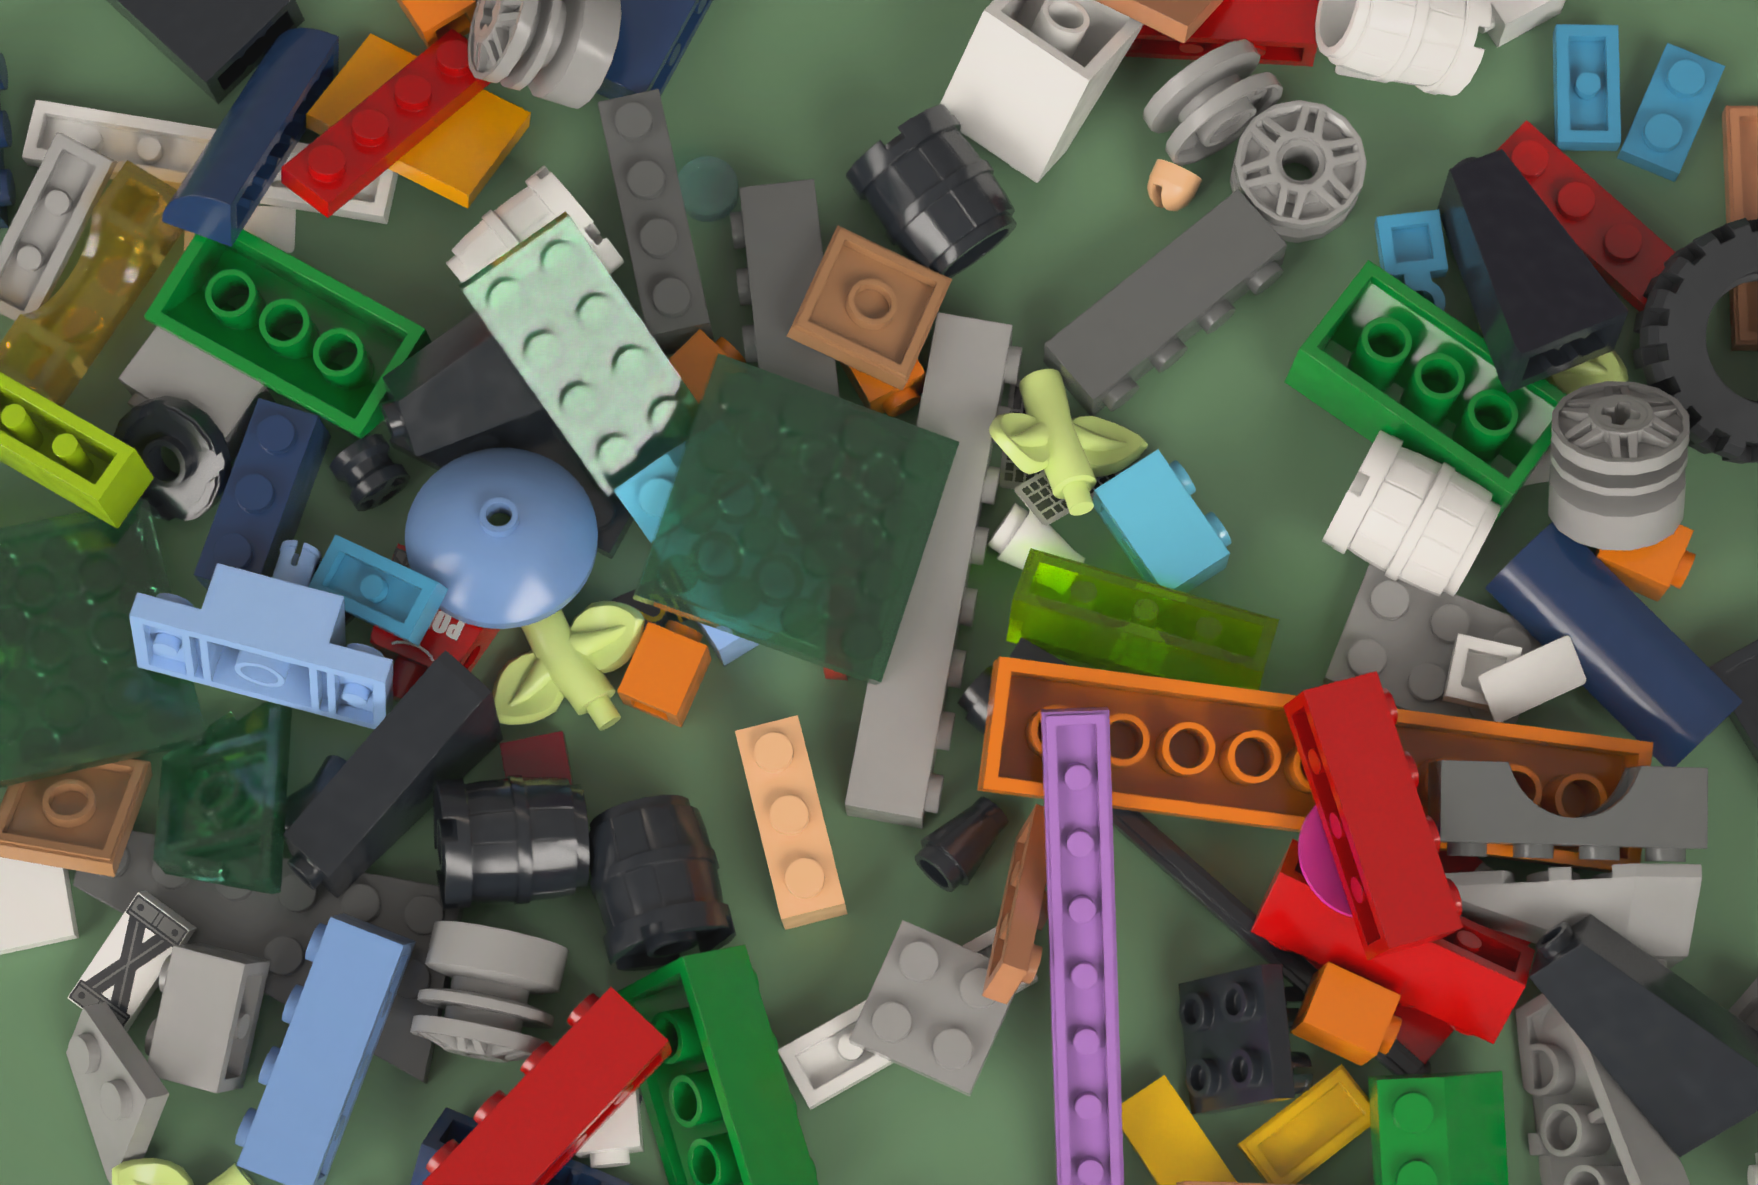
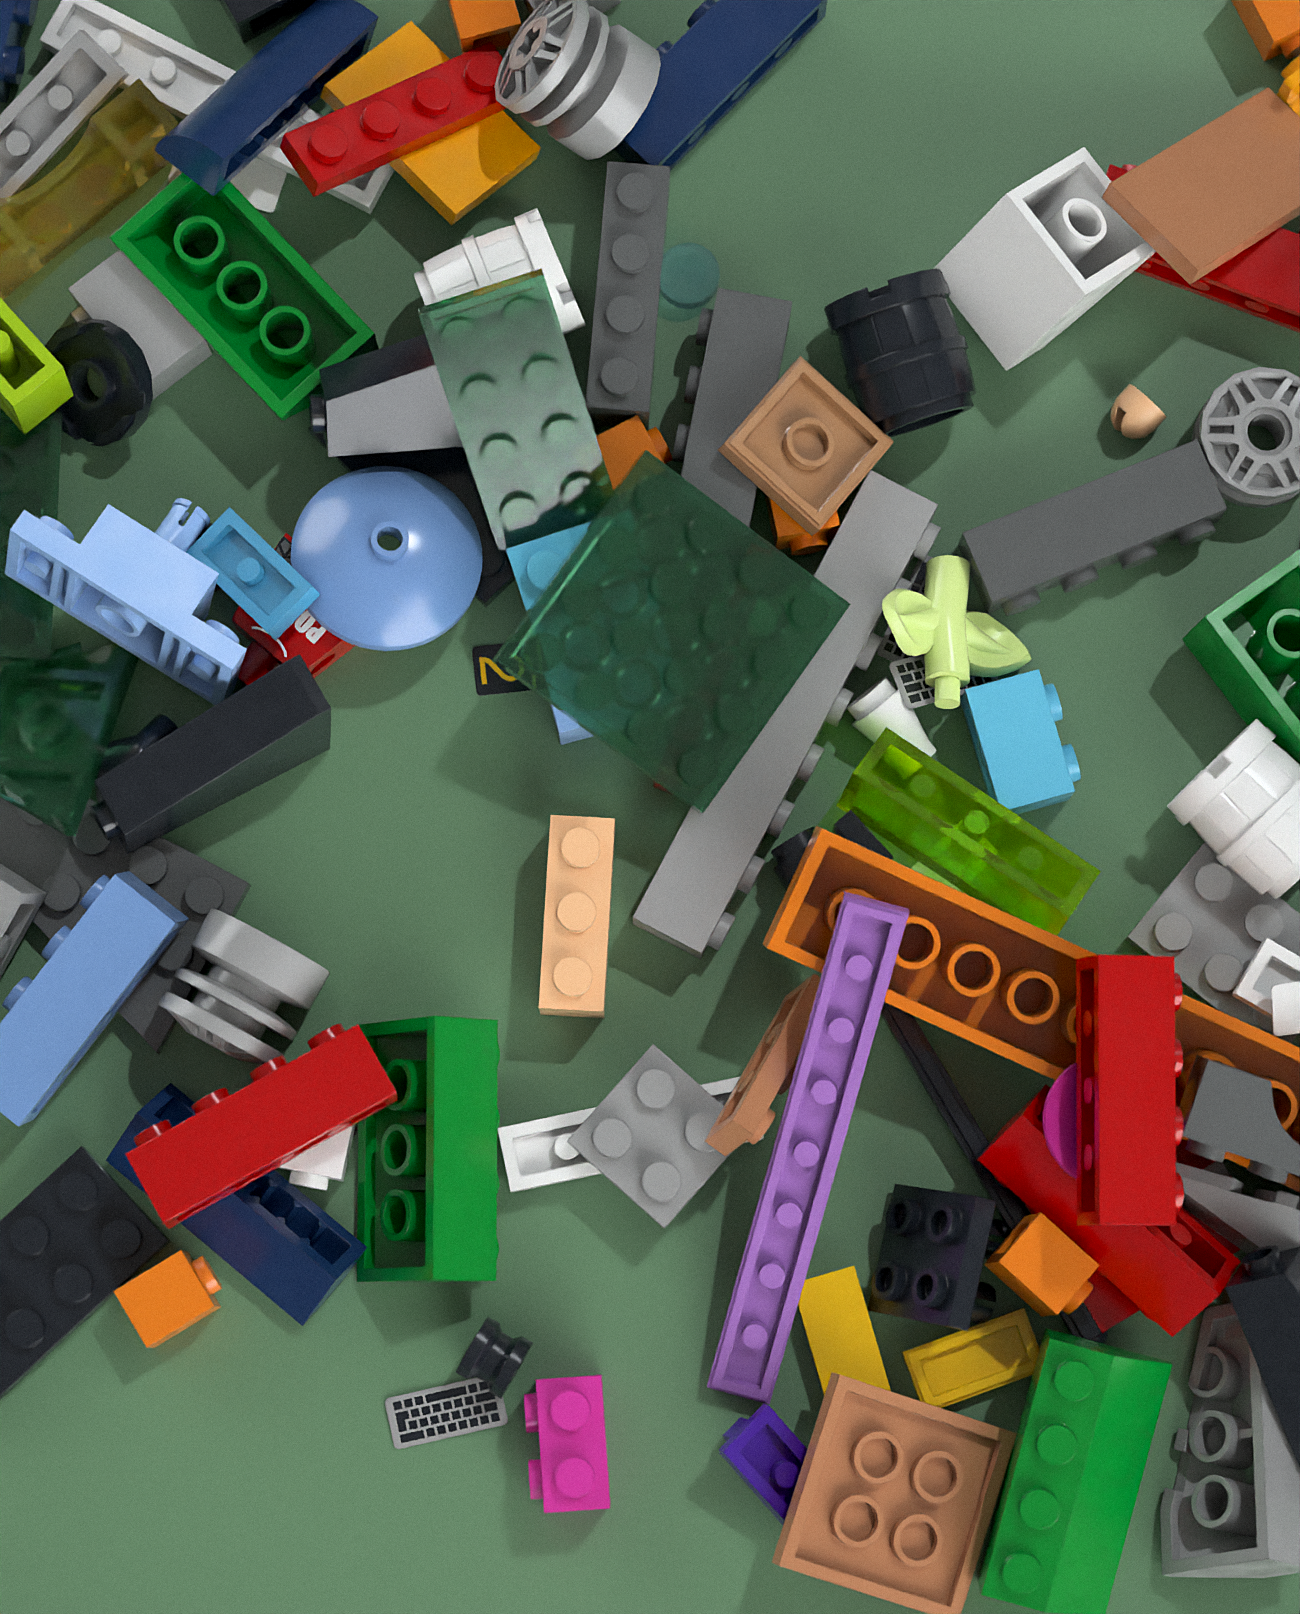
camera: 10 degrees right, 5 degrees up
(265, 490) = (174, 444): dark blue brick -> none
(369, 472) = (280, 453): black wheel -> none
(509, 840) = (306, 851): black piece -> none
(537, 757) = (353, 789): dark red tile -> none
(569, 665) = (415, 698): yellowish green plant -> none
(656, 882) = (432, 935): black piece -> none
(665, 672) = (503, 734): orange brick -> none
(960, 845) = (730, 988): black cone -> none
(1211, 102) = (1200, 346): light grey wheel -> none

